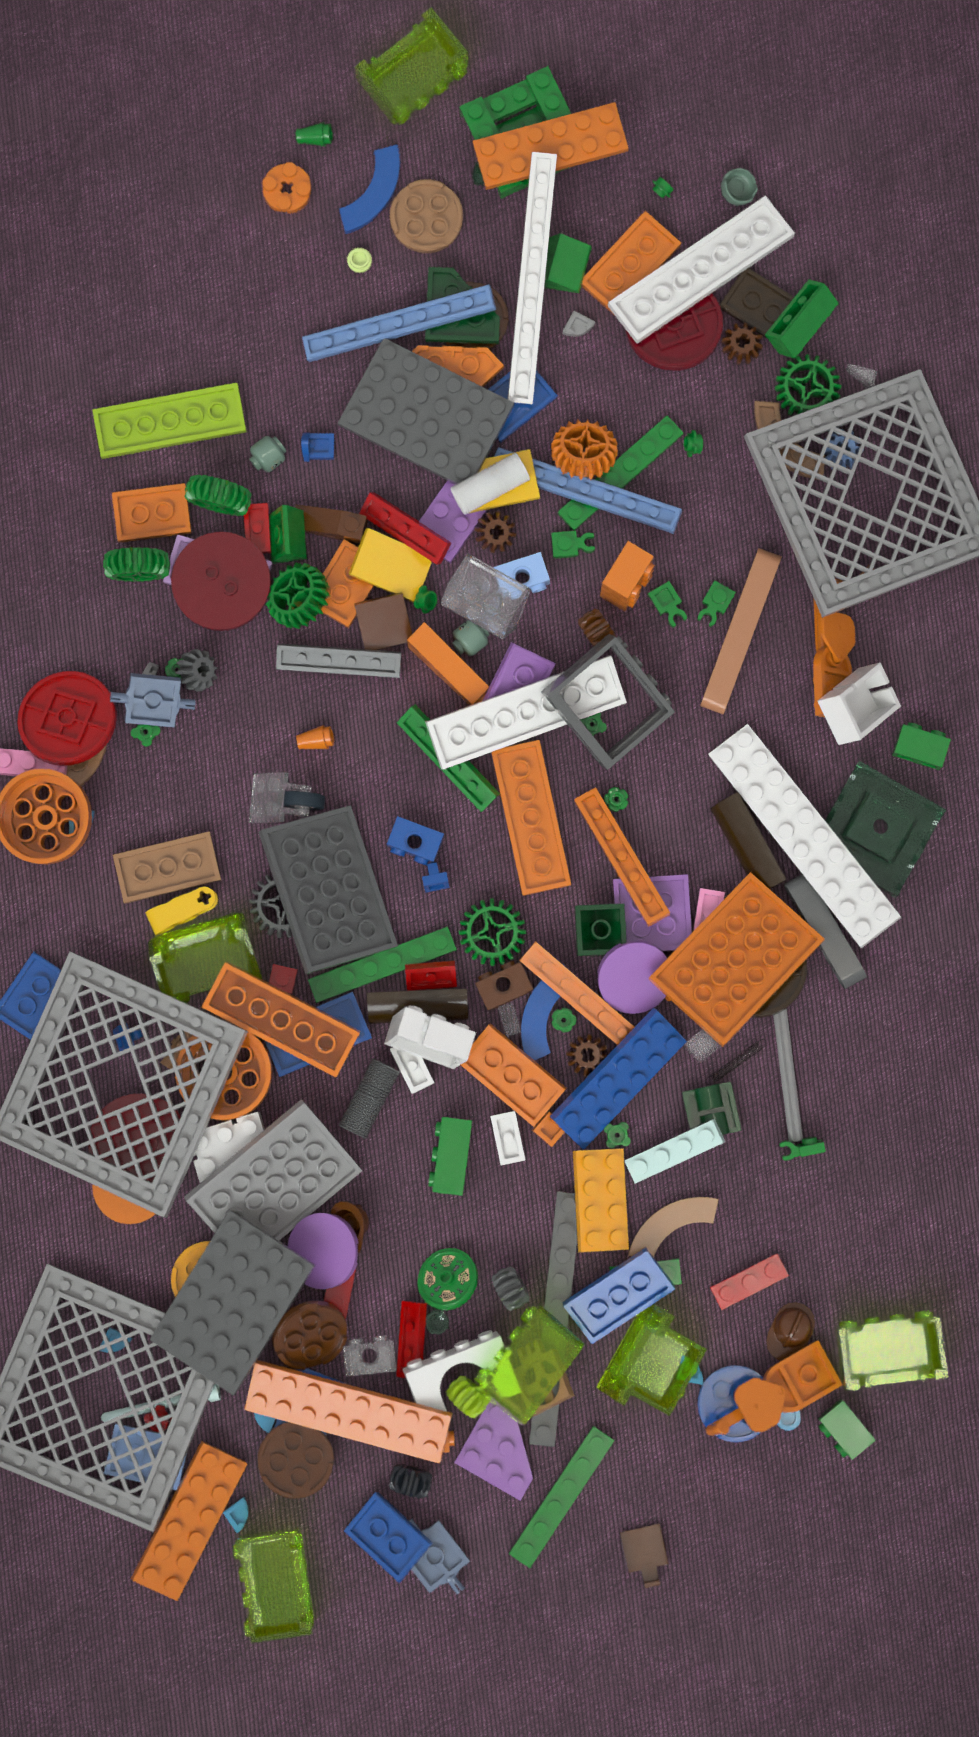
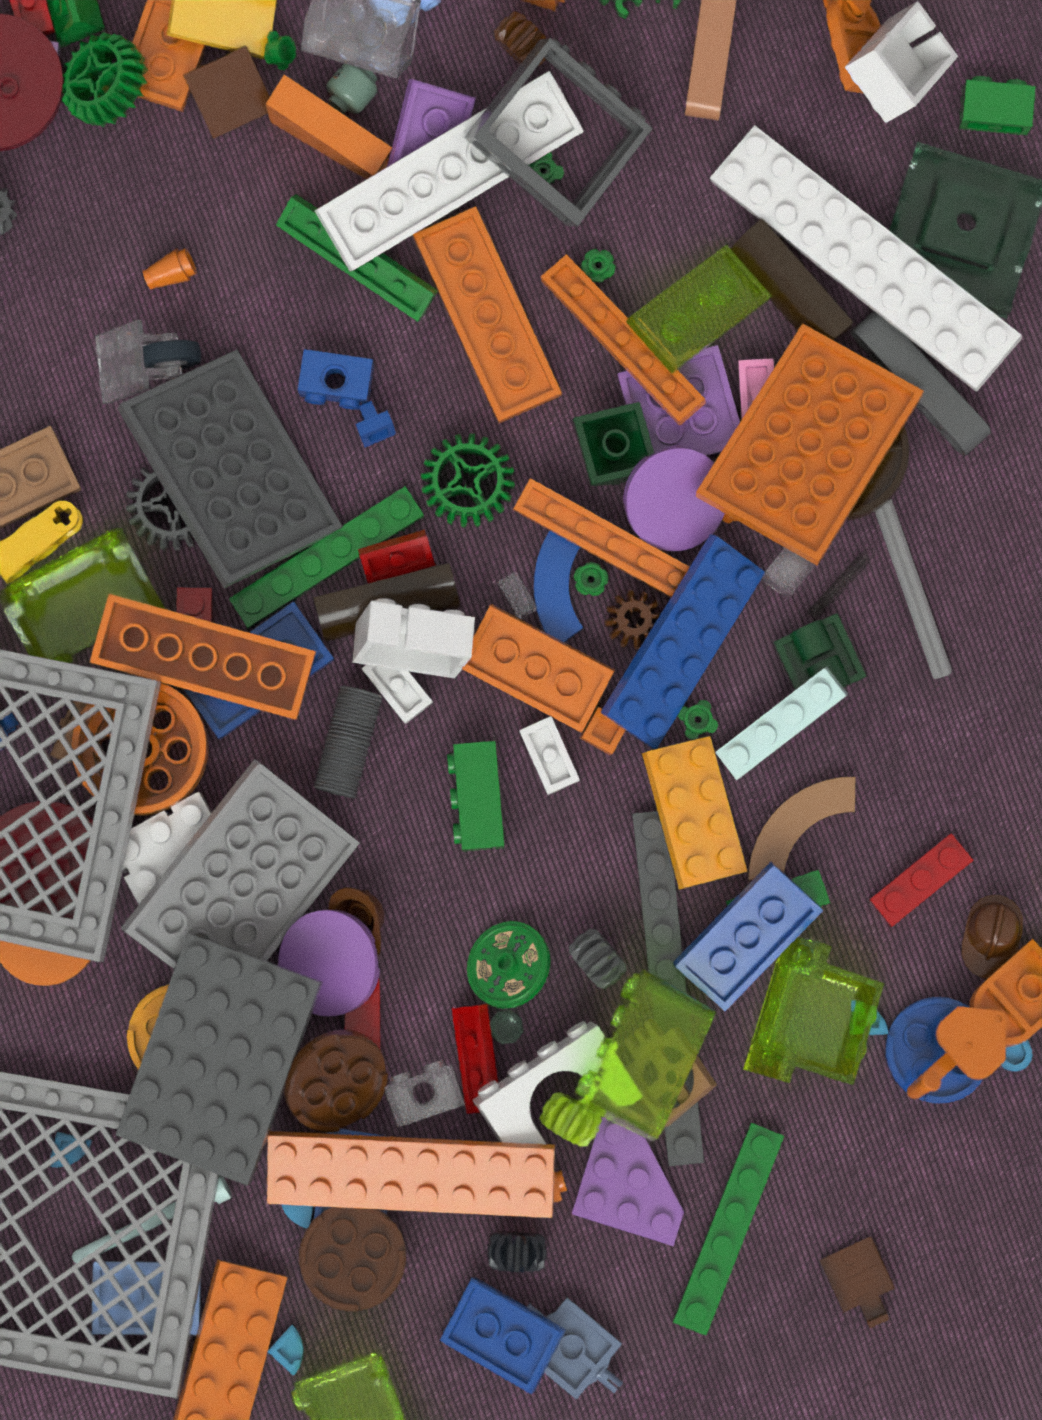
camera: 15 degrees left, 0 degrees up
(160, 1409) = (153, 1232): red plate -> none
(338, 660) = (178, 157): plate -> none
(492, 996) = (490, 569): reddish brown brick -> none
(679, 846) = (698, 309): none -> clear neon green plate
(808, 1147) = (963, 678): green plate -> none

